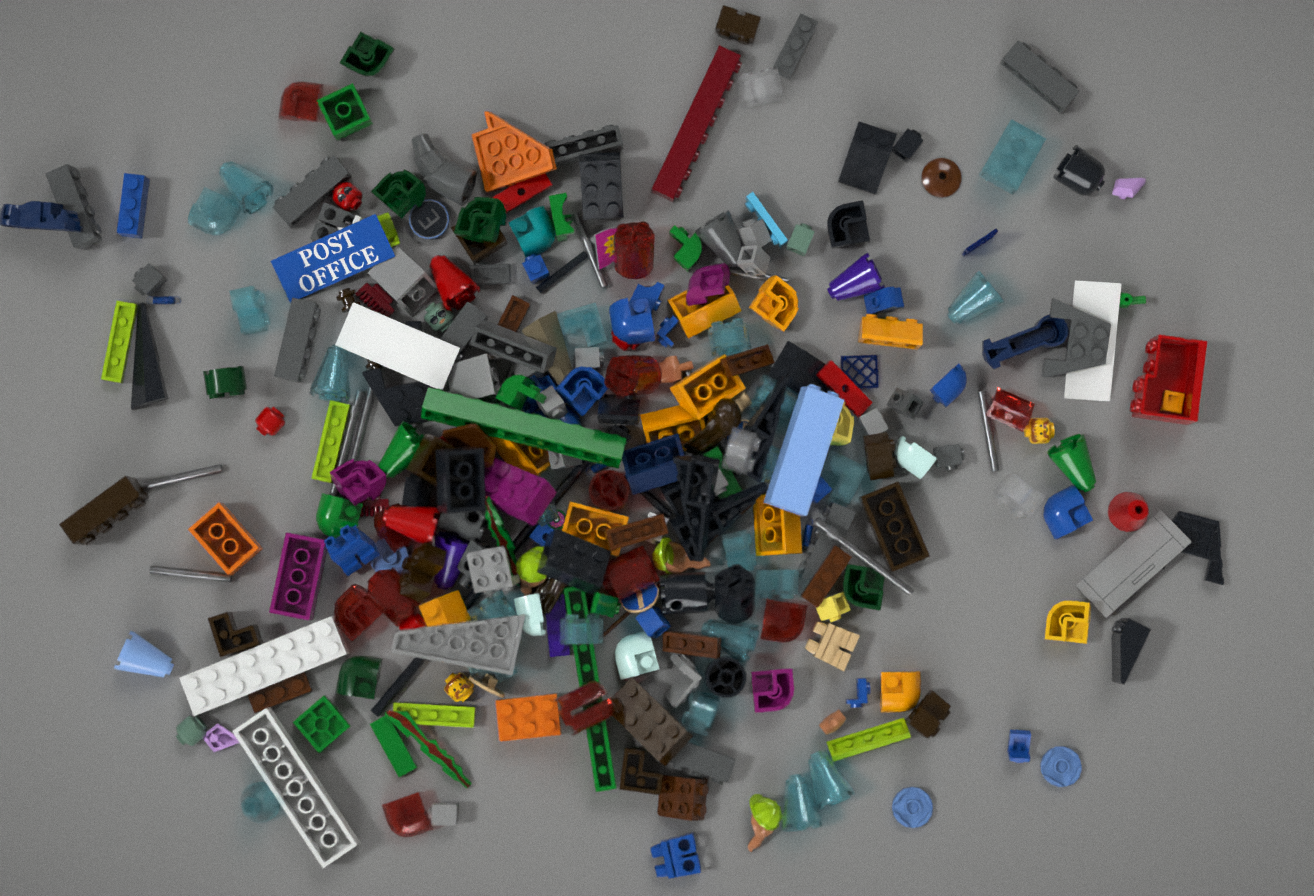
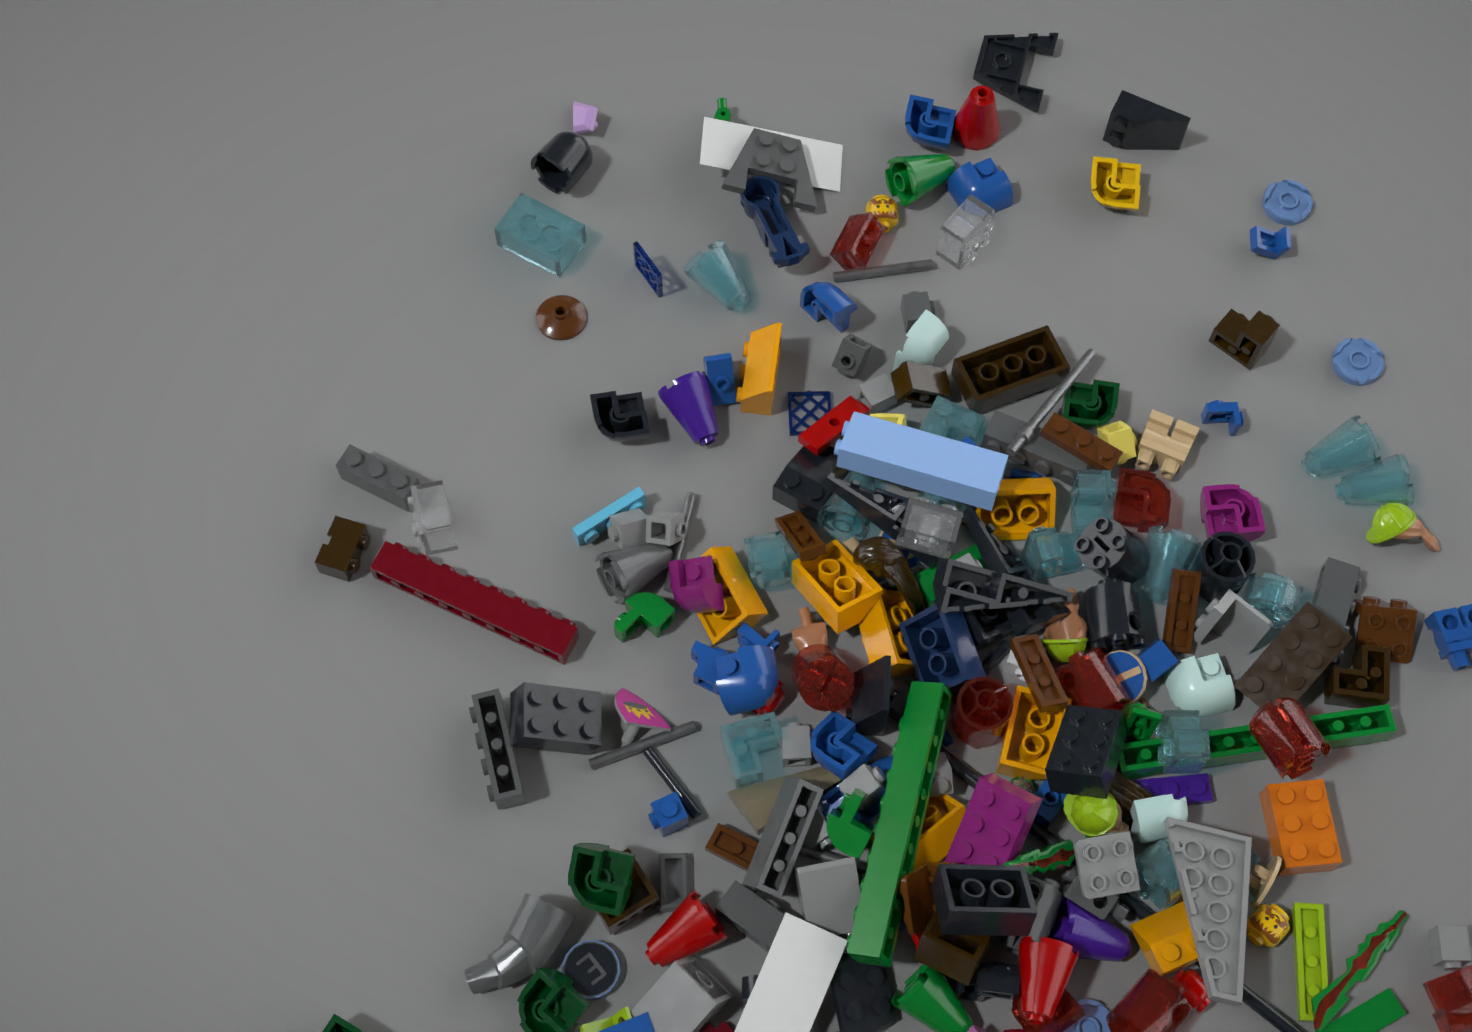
camera: 90 degrees left, 20 degrees down
(420, 570) = (1112, 971): dark brown brick -> none
(438, 316) = (735, 953): sand green head -> none
(509, 154) = (504, 847): orange wing -> none
(532, 188) = (549, 822): red tile -> none
(534, 231) = (615, 818): teal brick -> none
(561, 226) = (597, 779): green piece -> none
(634, 250) = (648, 674): clear red cylinder -> none
(776, 303) = (721, 504): light orange brick -> none
(800, 239) = (635, 474): sand green brick -> none
(832, 722) = (1263, 445): nougat piece -> none
(867, 157) = (531, 396): black slope -> none
(868, 739) = (1281, 406): lime plate -> none
(899, 691) = (1215, 371): light orange brick -> none
(907, 144) = (518, 350): black brick -> none
(1039, 76) = (441, 205): dark grey brick -> none
(1125, 471) = (929, 123): none -> blue brick
(1133, 563) = (1042, 122): light grey sticker -> none
(1170, 367) = (820, 74): red piece -> none
(1172, 402) = (843, 79): light orange tile -> none

